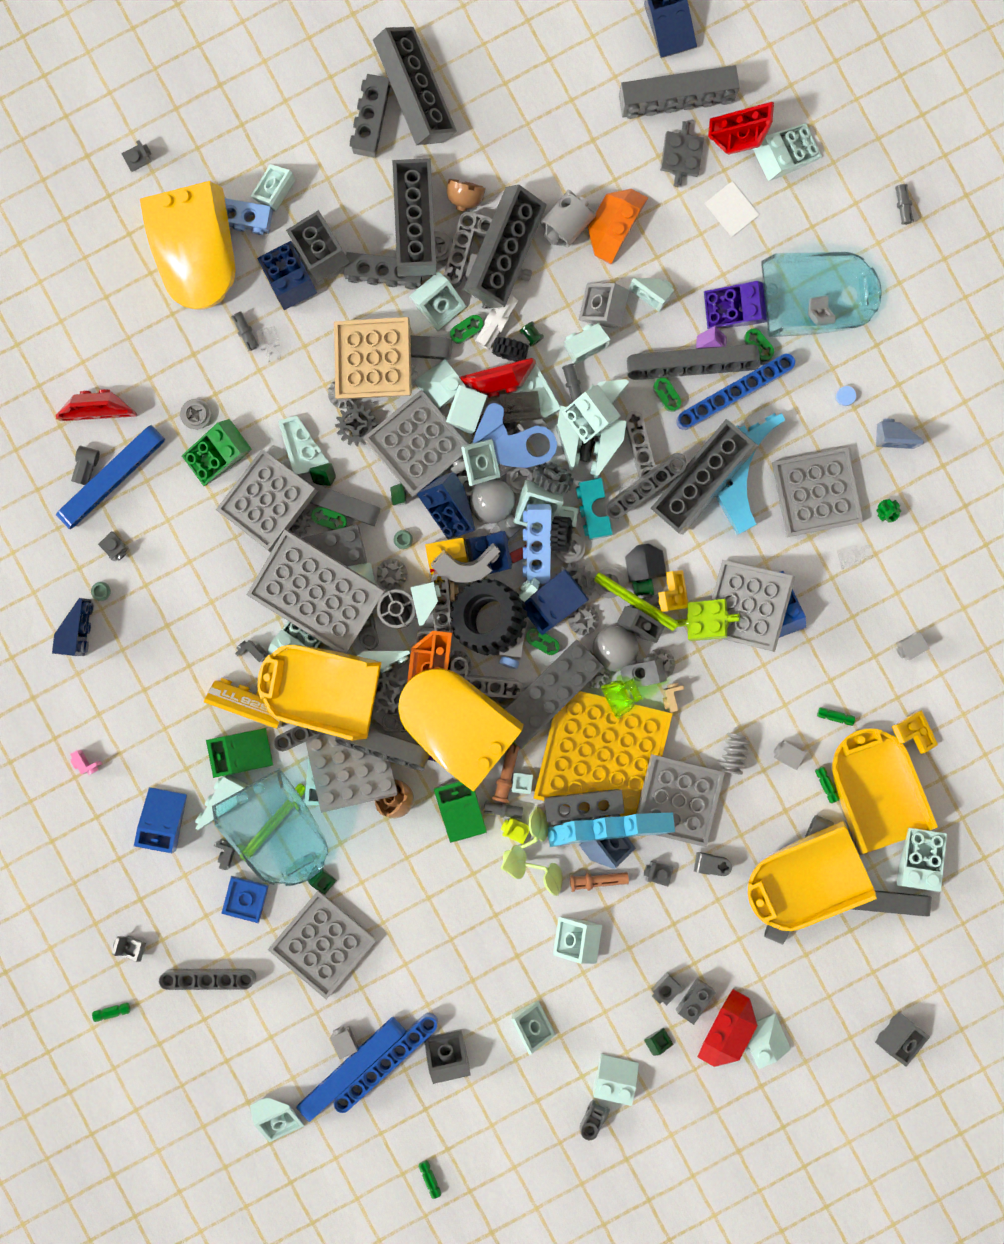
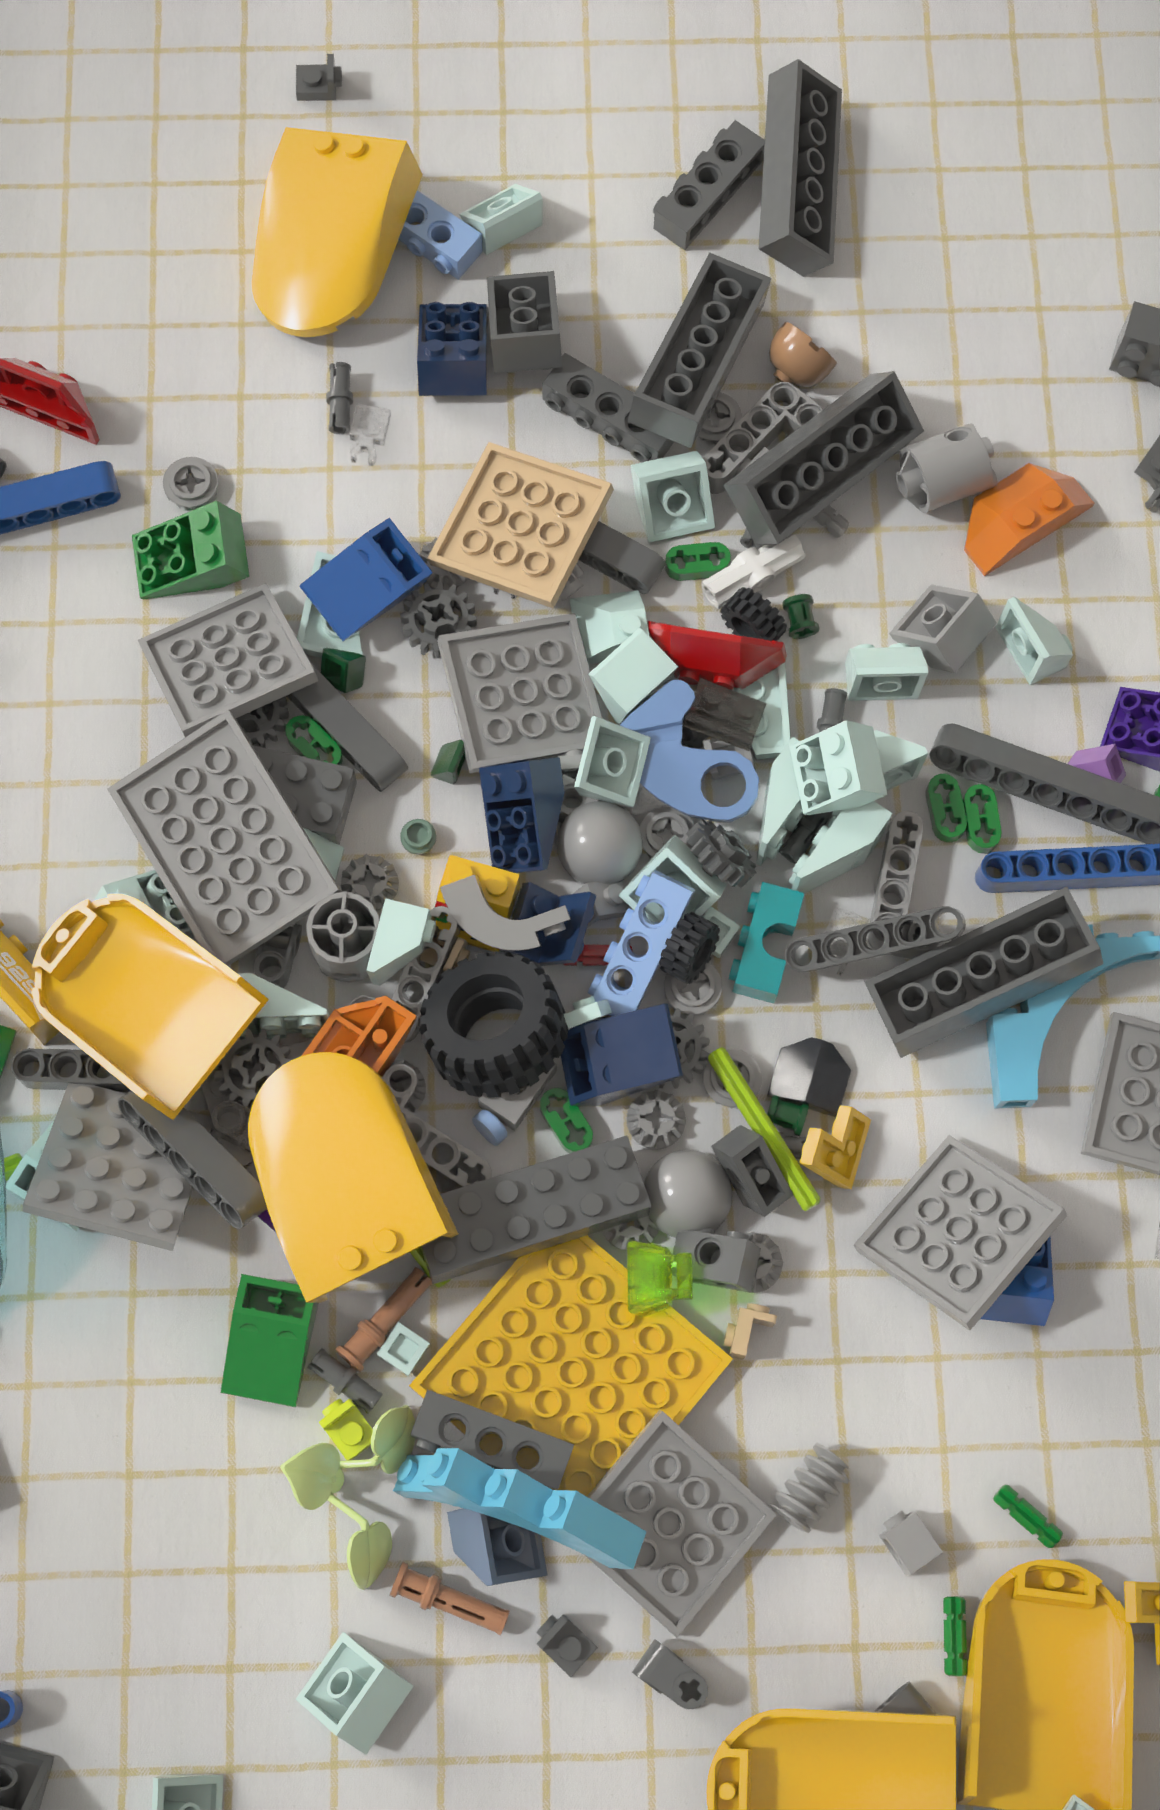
camera: 20 degrees right, 15 degrees down
(256, 651) = (64, 880): dark grey bracket -> none
(311, 425) = (366, 579): none -> blue slope
(397, 805) = (165, 1272): medium nougat cylinder -> none
(644, 400) = (938, 809): none -> green beam
(707, 620) = (874, 1223): lime plate -> none

